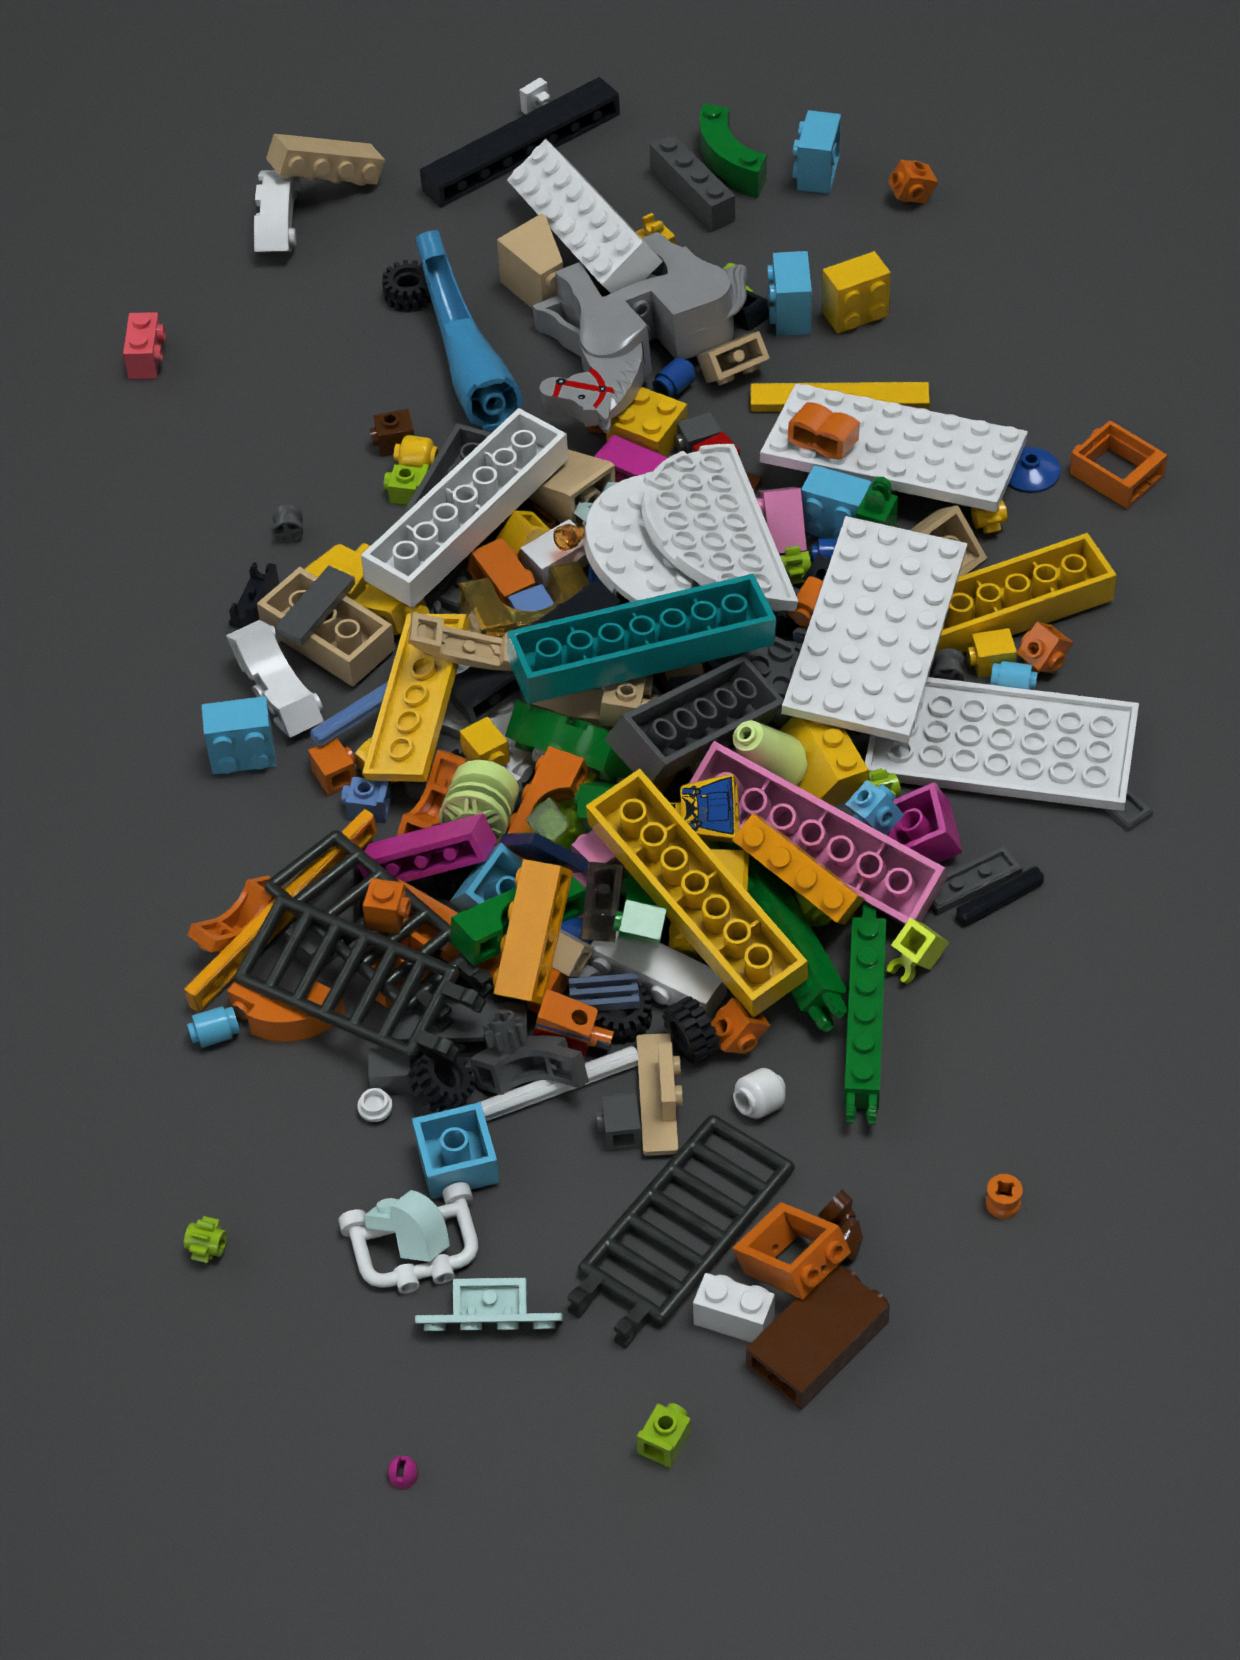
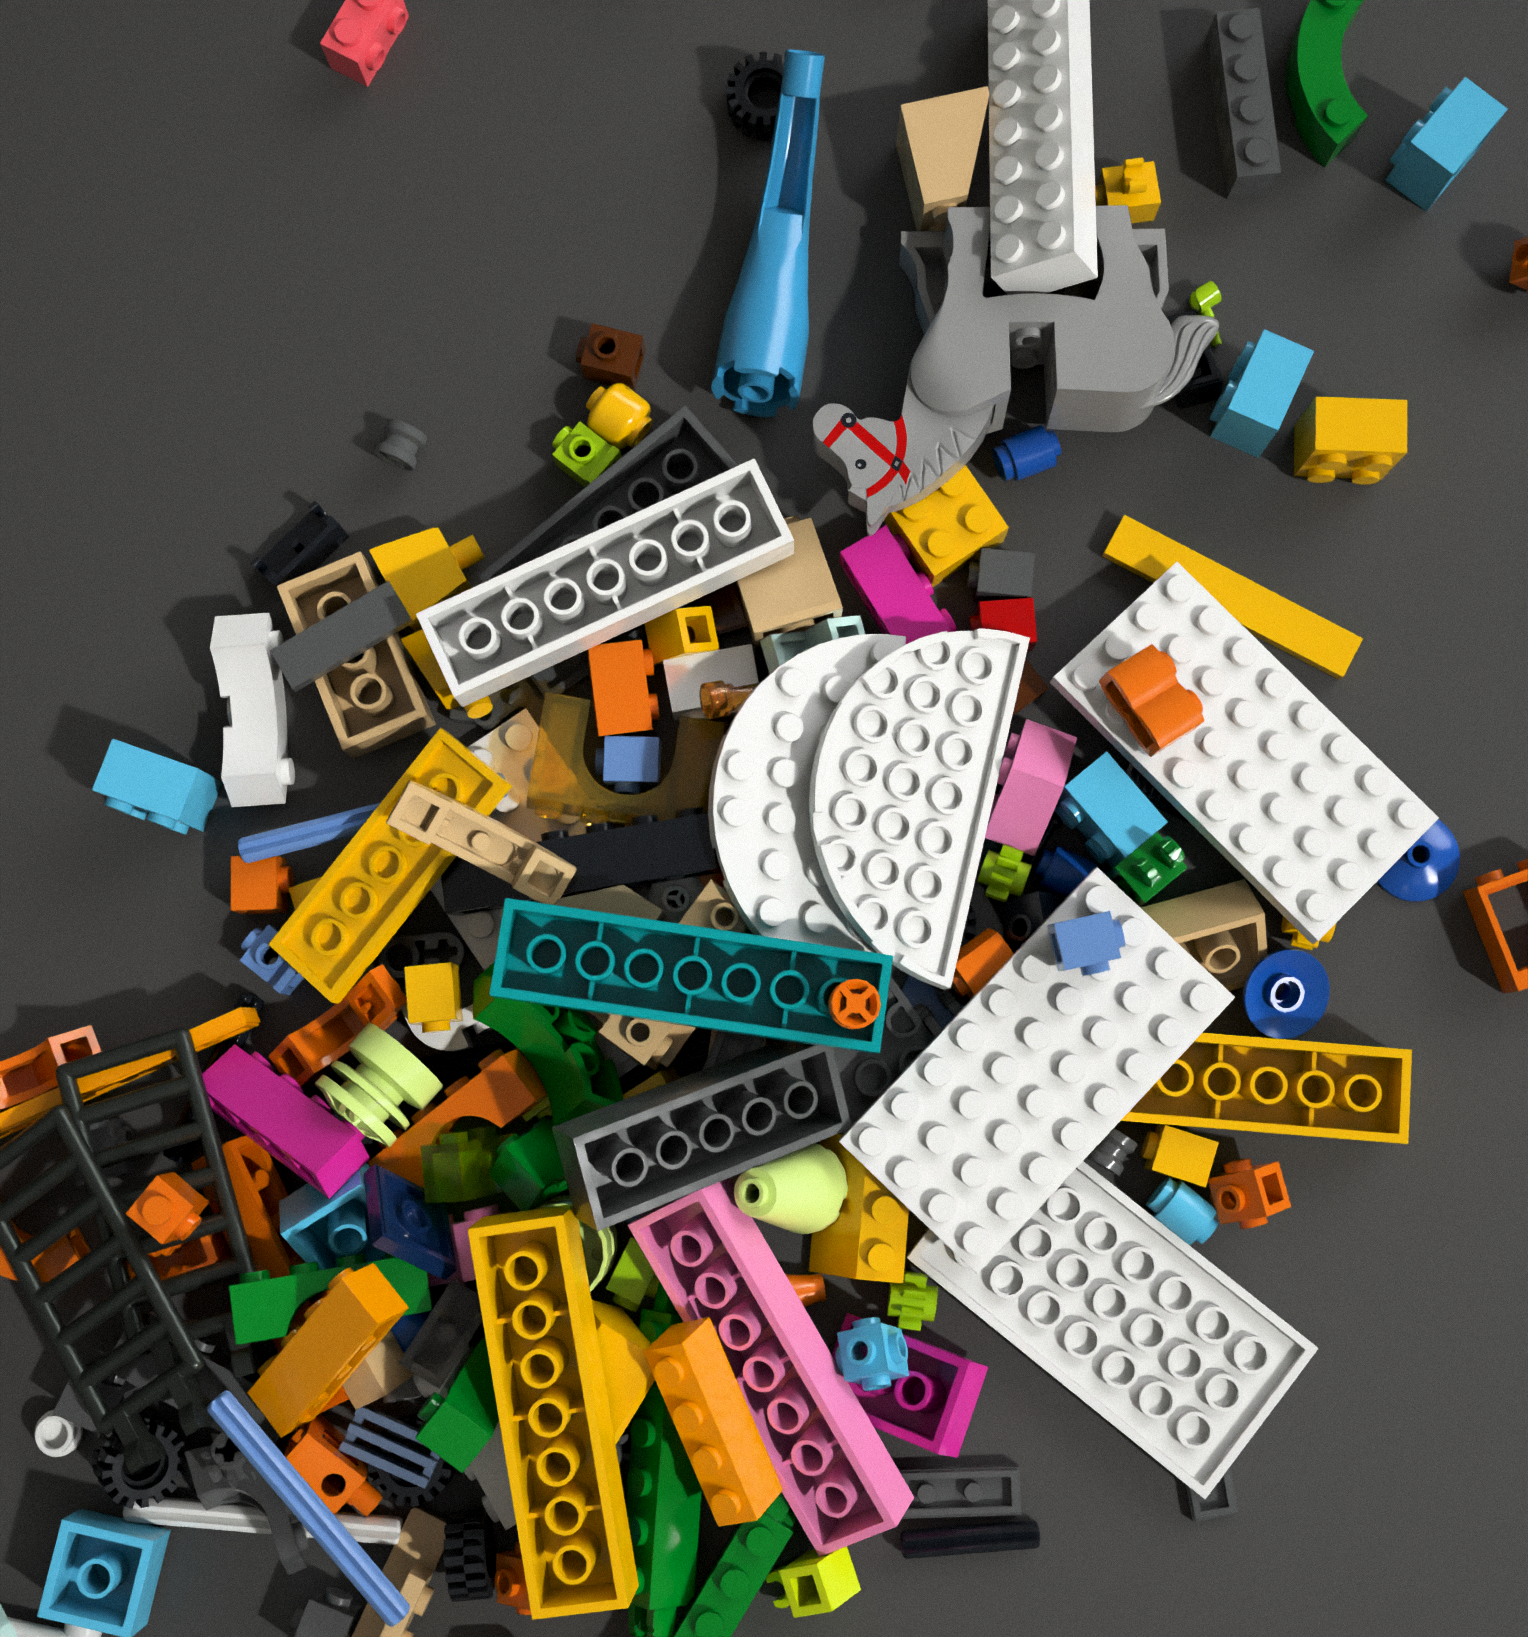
camera: 30 degrees right, 30 degrees up
(573, 1022) = (308, 1508): none -> medium blue axle
(711, 808) = (643, 1278): torso -> none
(732, 357) = (1121, 464): tan brick -> none
(745, 594) = (860, 998): none -> orange wheel
(860, 539) = (1087, 943): none -> medium blue brick
(996, 544) = (1302, 998): none -> blue dish

